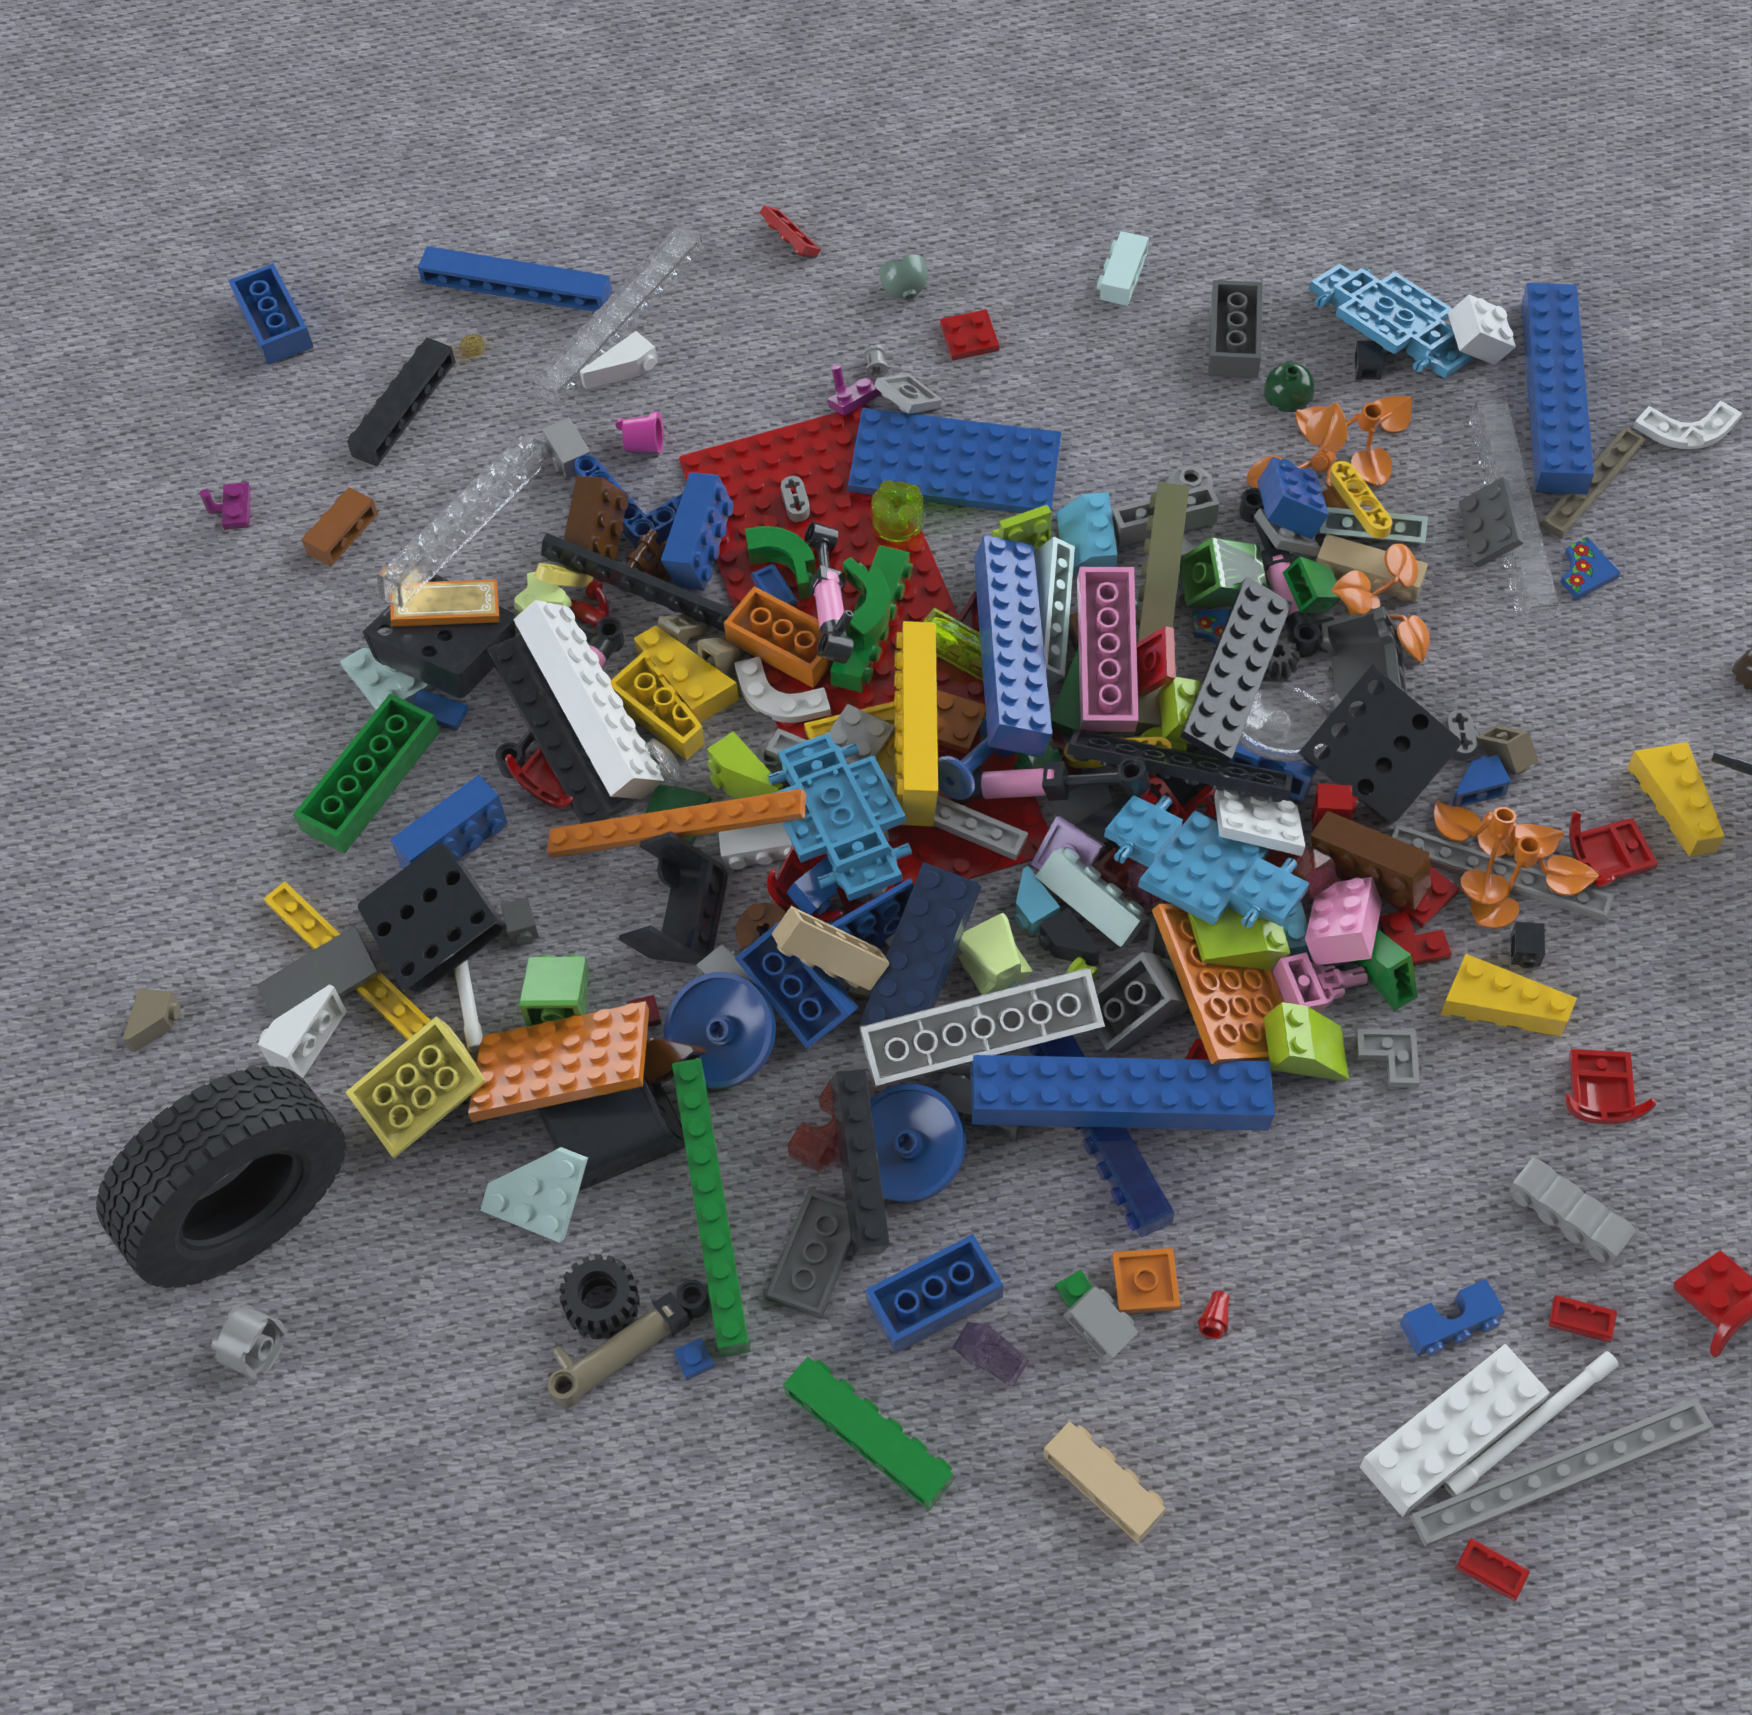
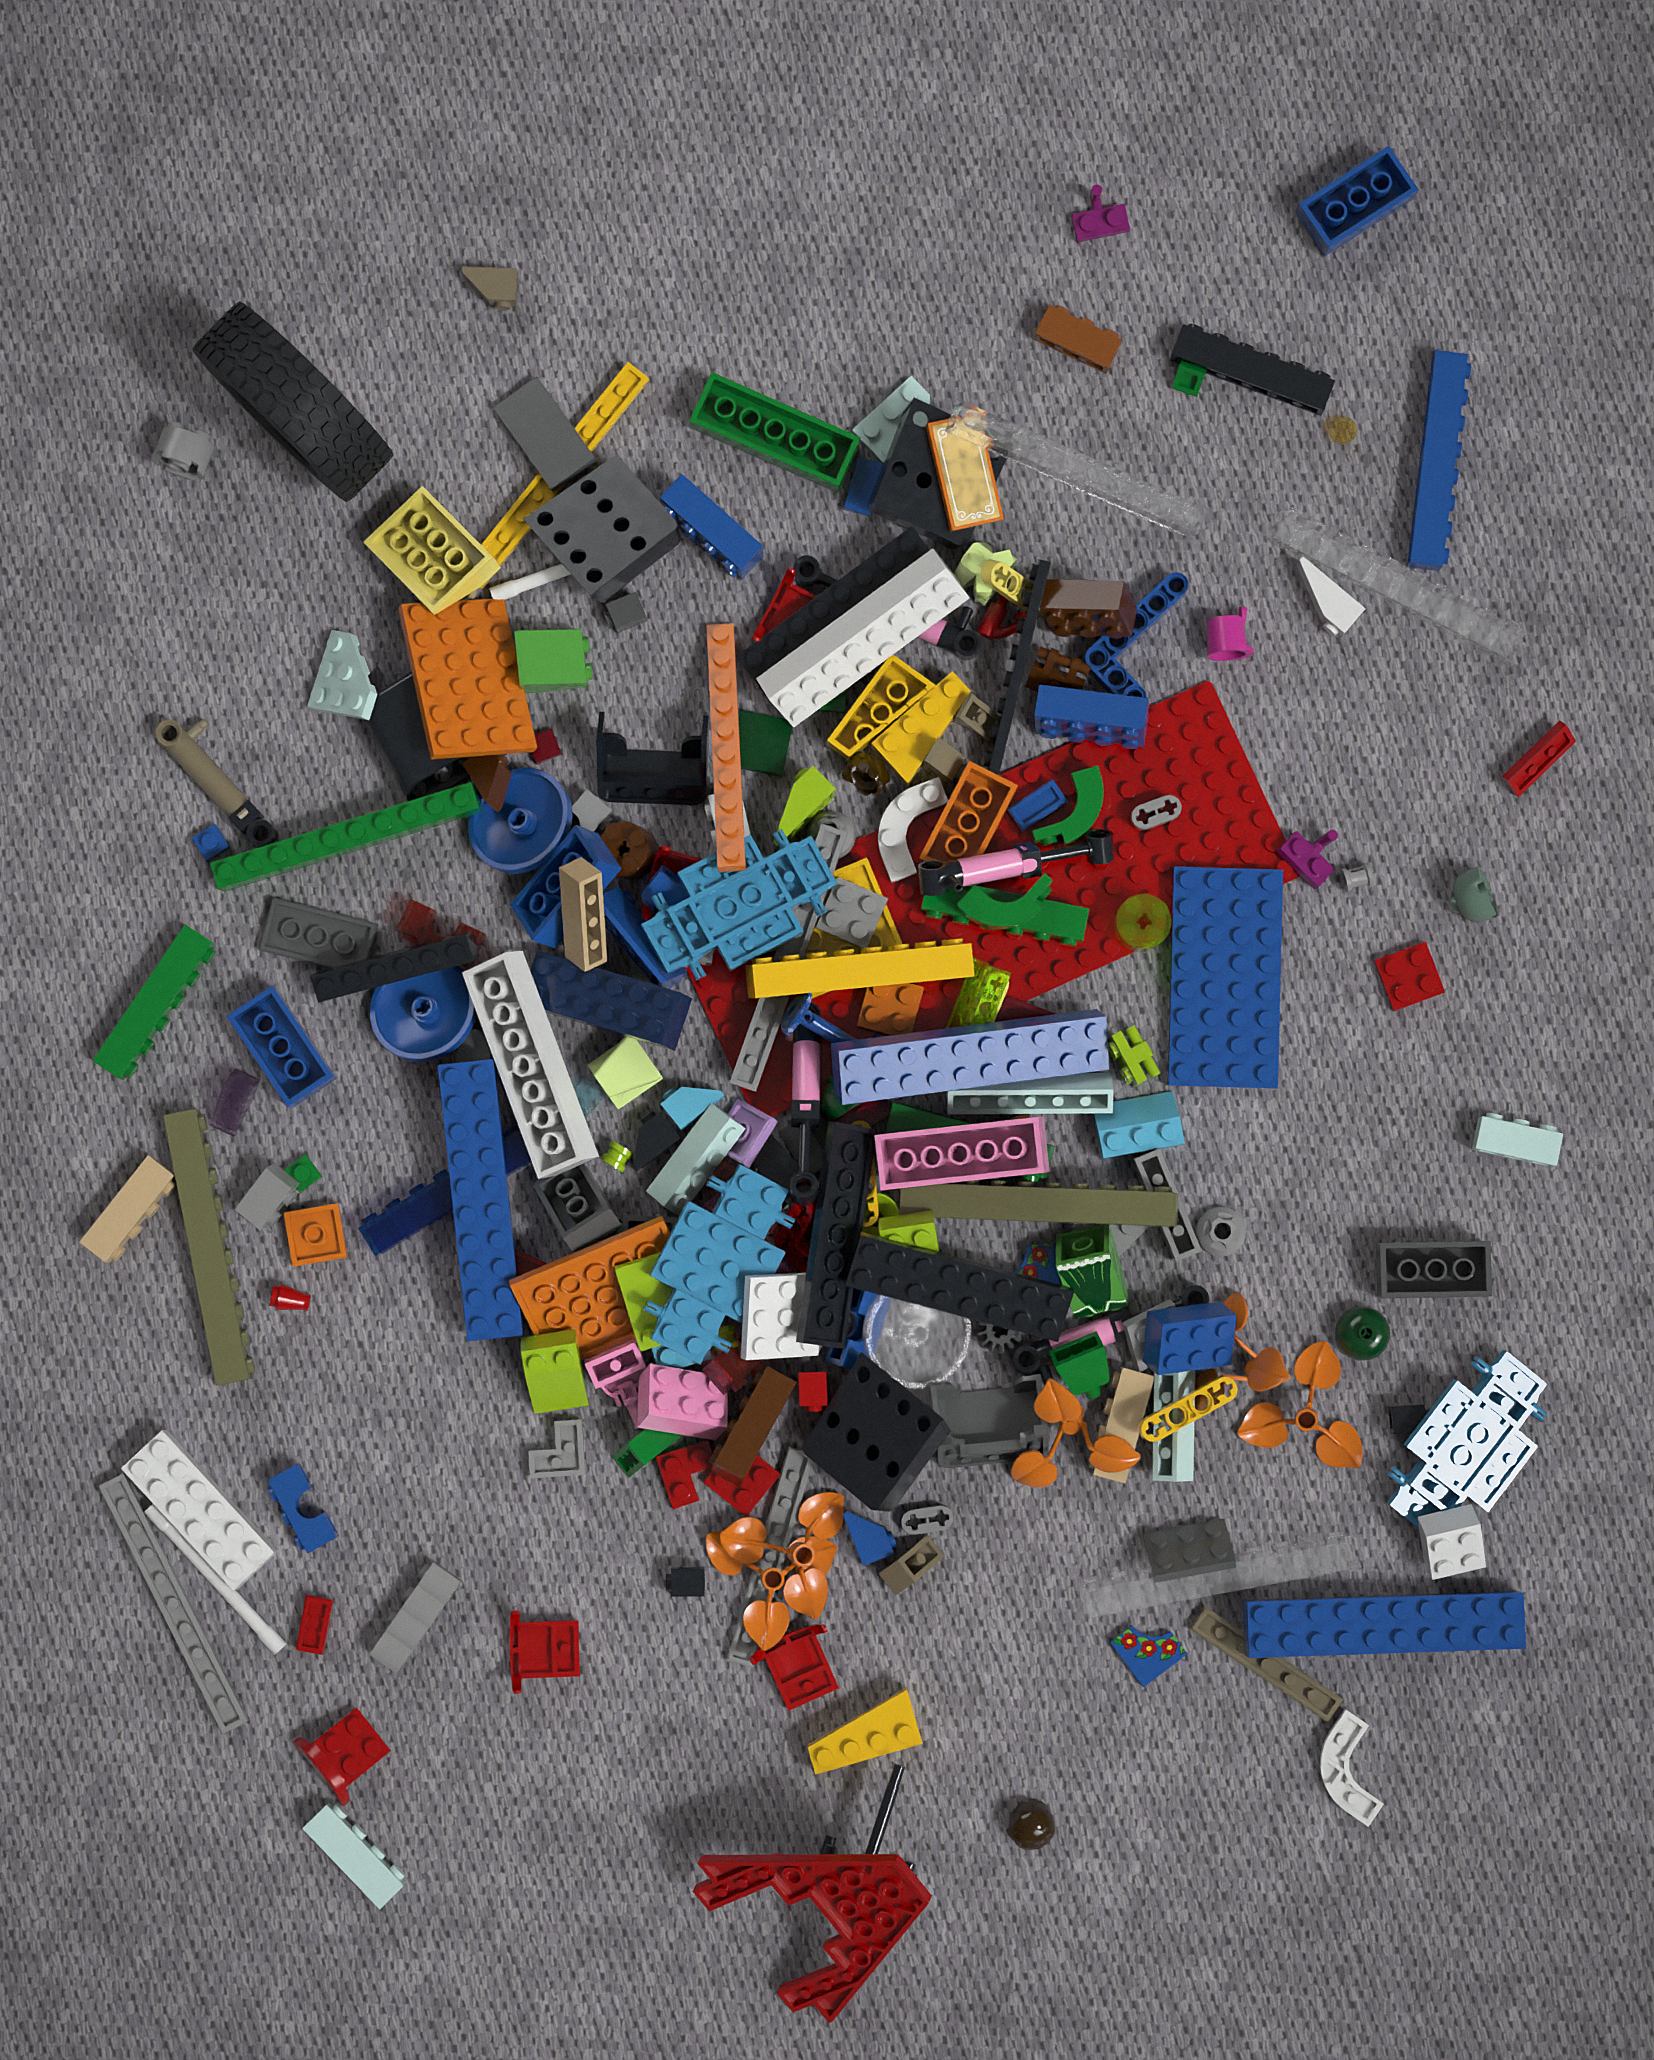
camera: 80 degrees right, 25 degrees up
(303, 1031) = (474, 428): white slope -> none
(398, 447) = (1189, 378): none -> green plate
(565, 446) = (1205, 558): light grey brick -> none
(593, 1274) = (237, 735): black tyre -> none
(668, 763) = (812, 725): clear dish -> none
(721, 719) = (867, 773): none -> dark brown hair
(907, 393) = (1309, 917): light grey plate -> none
(1153, 1395) = (208, 1247): none -> olive brick
(1155, 660) = (952, 1202): red plate -> none
(1492, 1569) = (84, 1542): red plate -> none
(1506, 998) = (626, 1552): yellow wedge -> none

